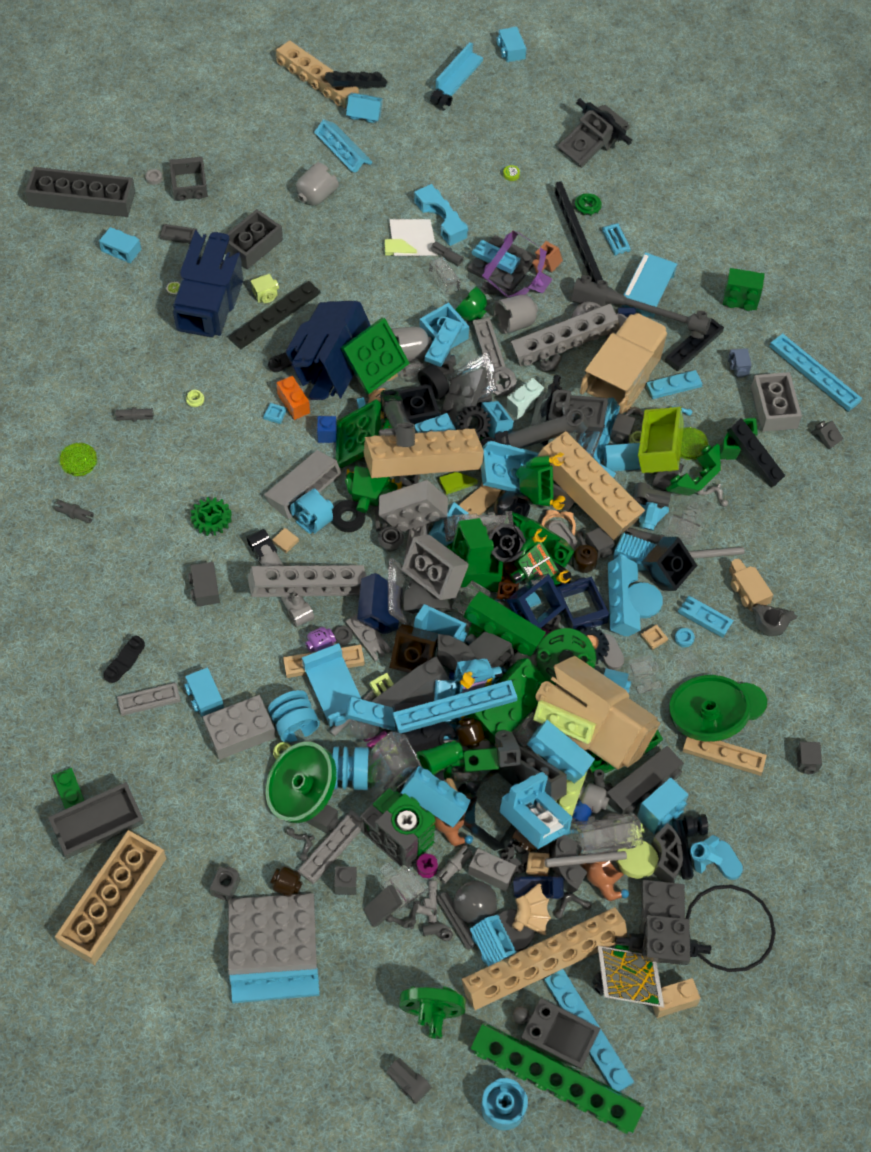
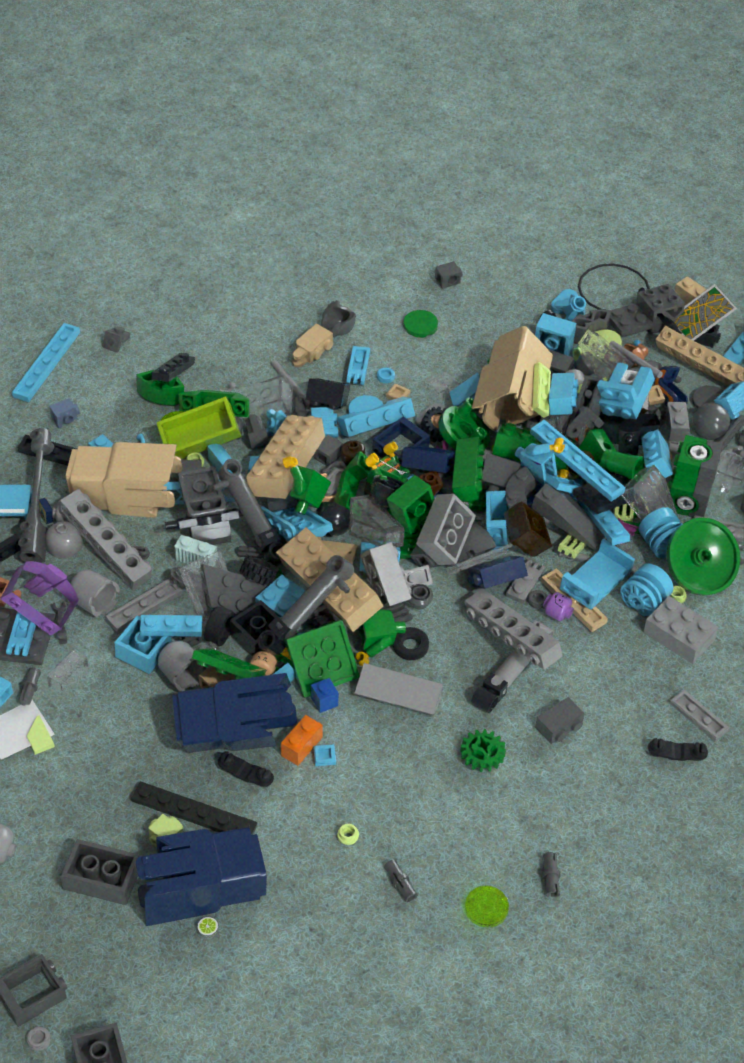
camera: 115 degrees left, 10 degrees down
(120, 245) = (173, 1013): medium azure brick -> none
(177, 233) = (120, 965): dark grey tile -> none
(204, 692) = (666, 671): medium azure brick -> none
(285, 540) = (468, 682): tan tile -> none
(312, 511) = (431, 661): medium azure brick -> none
(473, 305) = (97, 631): green cylinder -> none
(499, 418) = (237, 553): medium azure brick -> none
(532, 911) = (693, 388): tan arm -> none
(710, 708) = (447, 335): green dish -> none
(727, 755) = (477, 323): tan plate -> none
(776, 401) = (102, 374): light grey brick -> none

